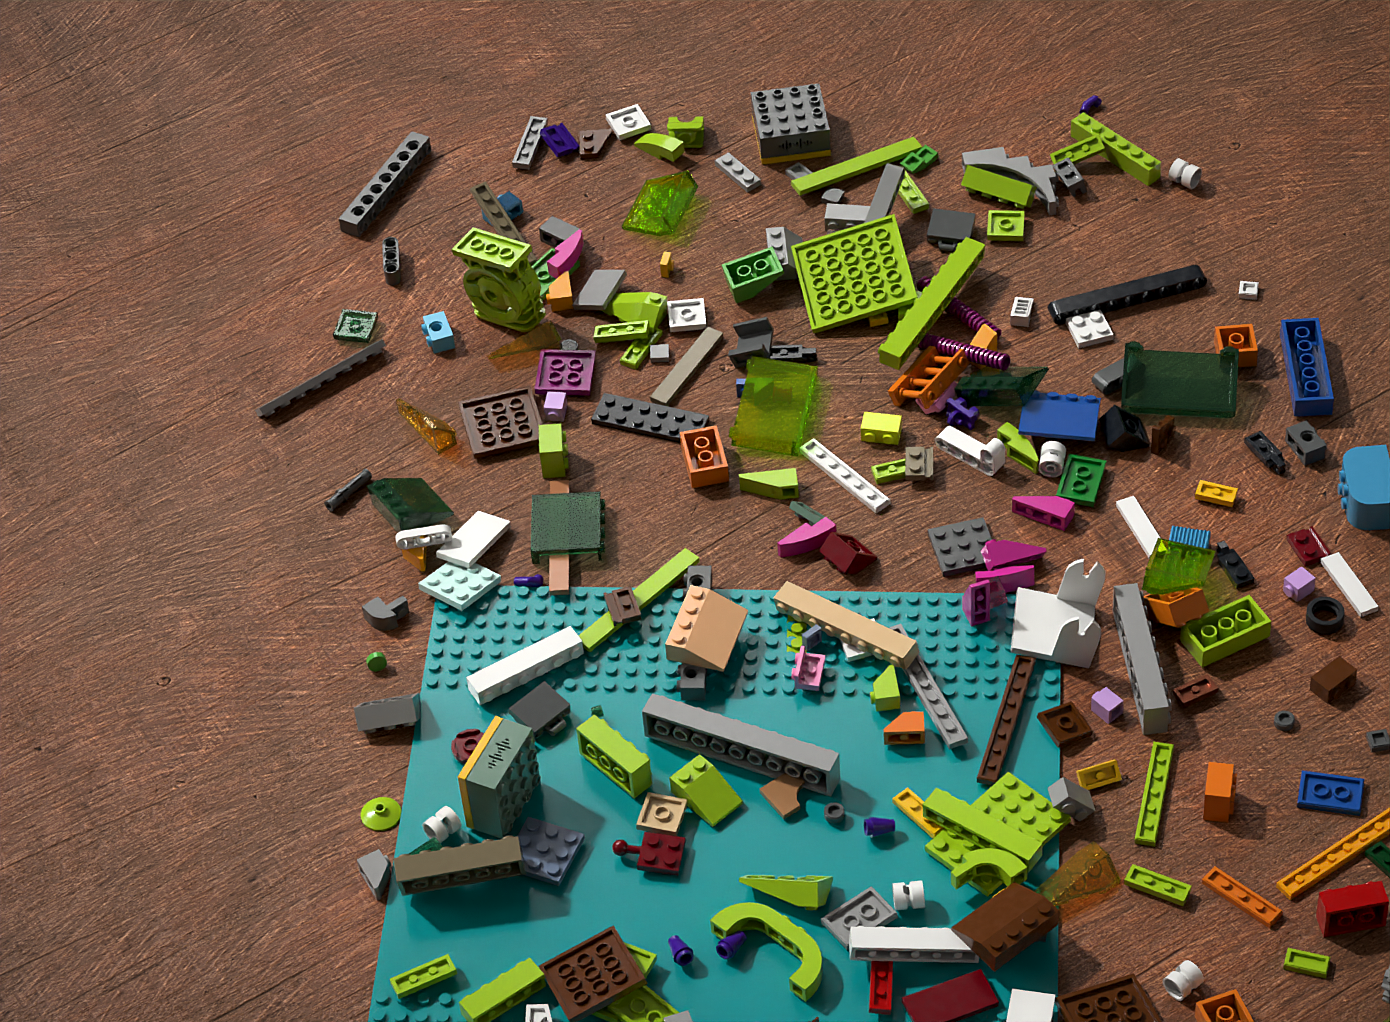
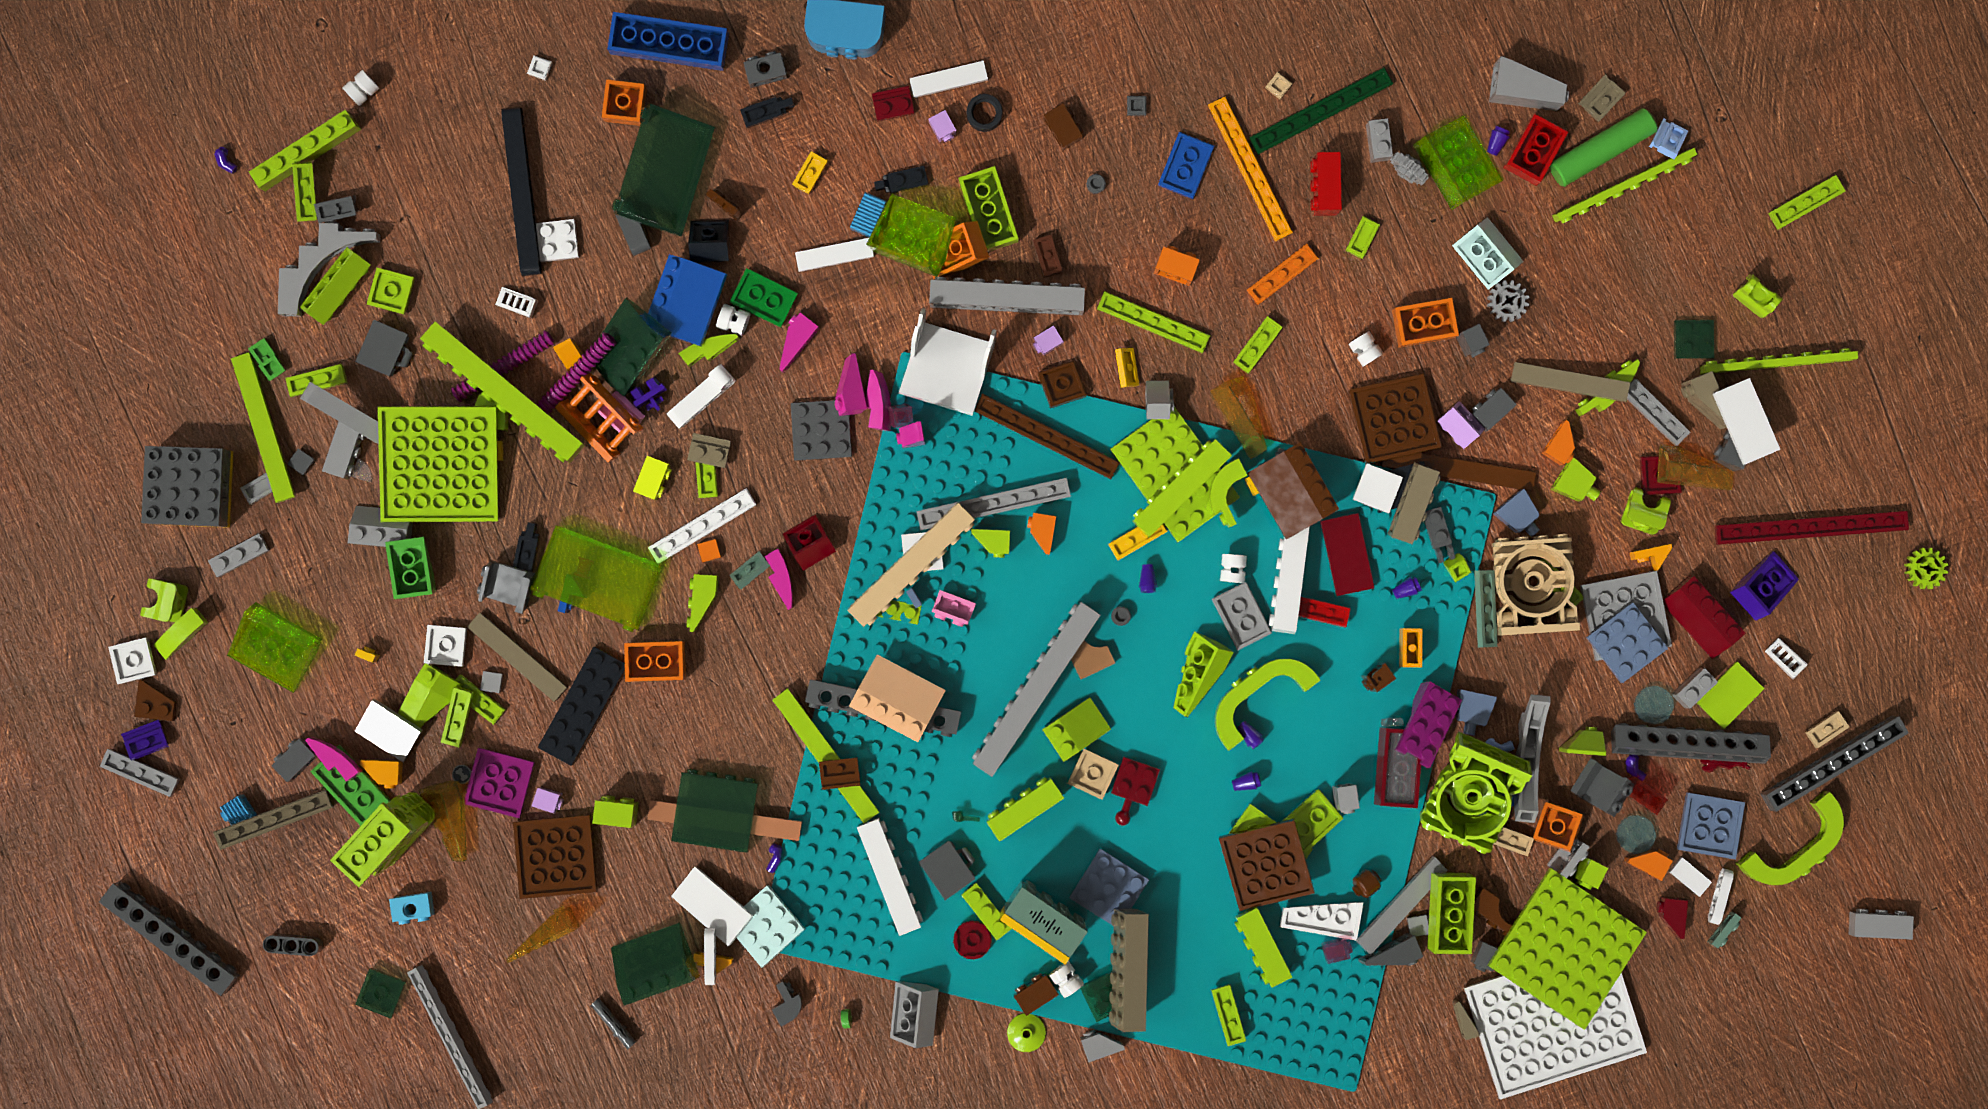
camera: 85 degrees left, 40 degrees up
(420, 801) = (1035, 993): none -> reddish brown brick
(821, 484) = (709, 550): none -> orange tile

